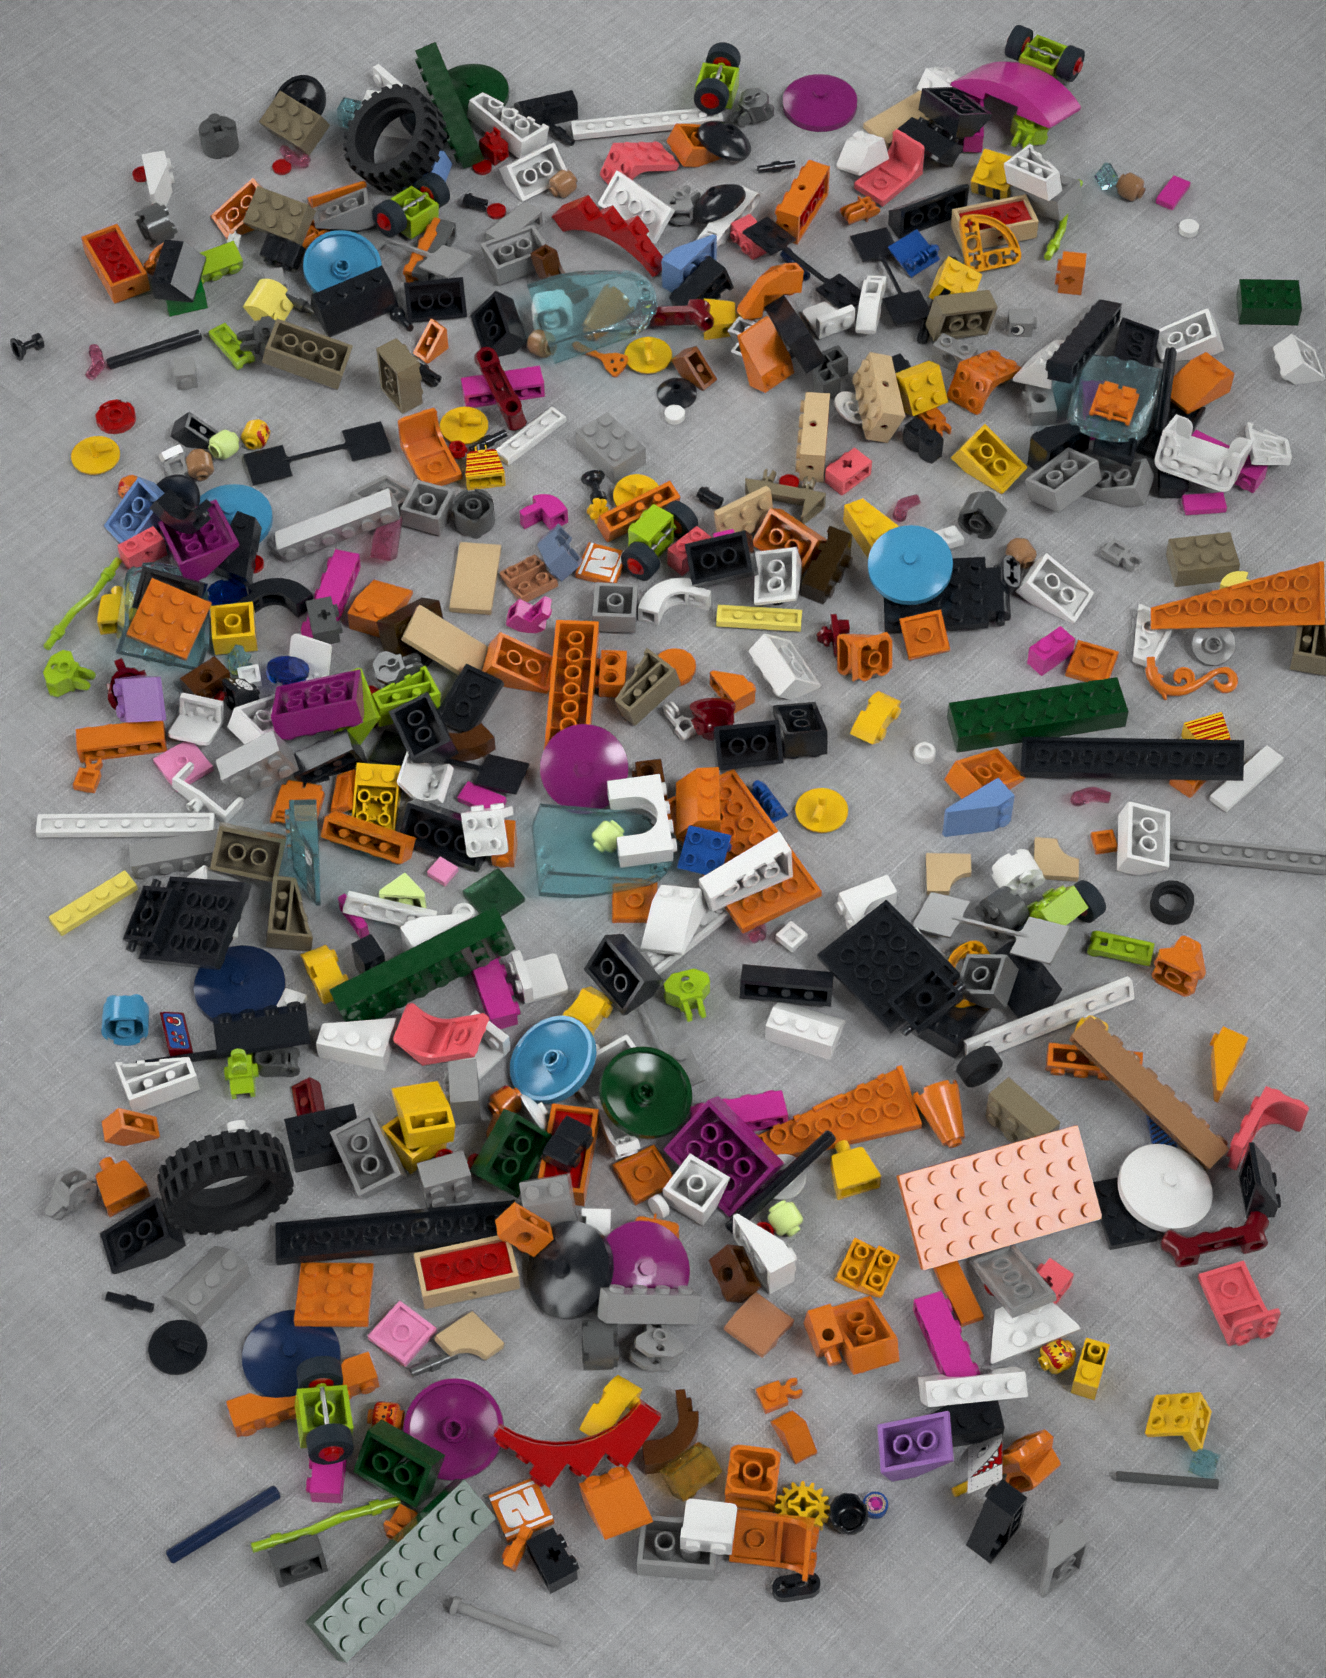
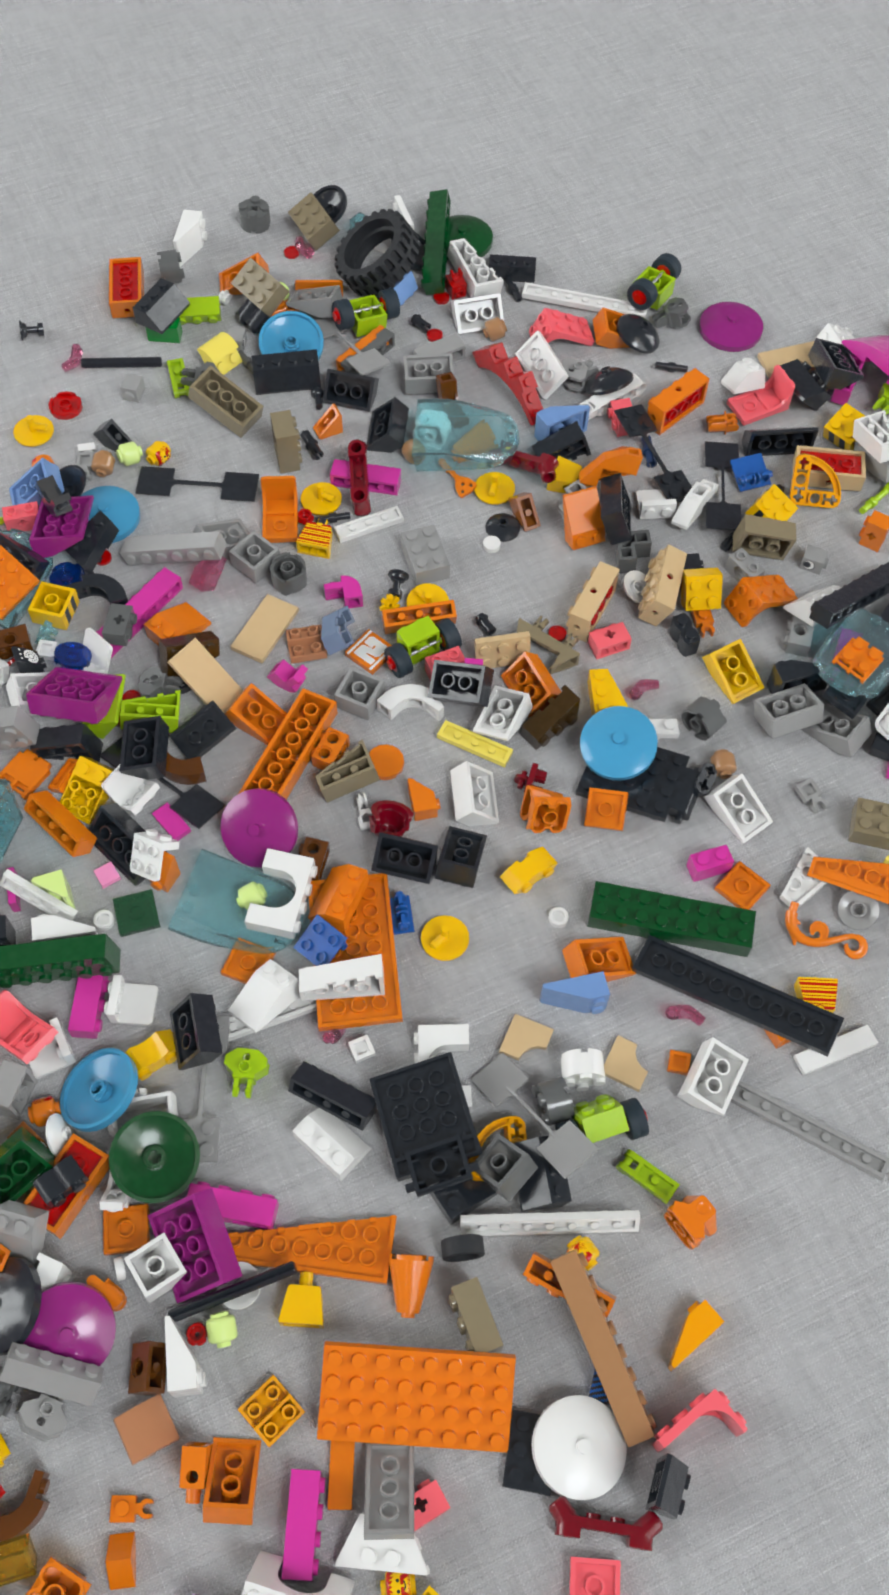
camera: 20 degrees right, 5 degrees up
(1175, 888) = (725, 1136): black tyre -> none

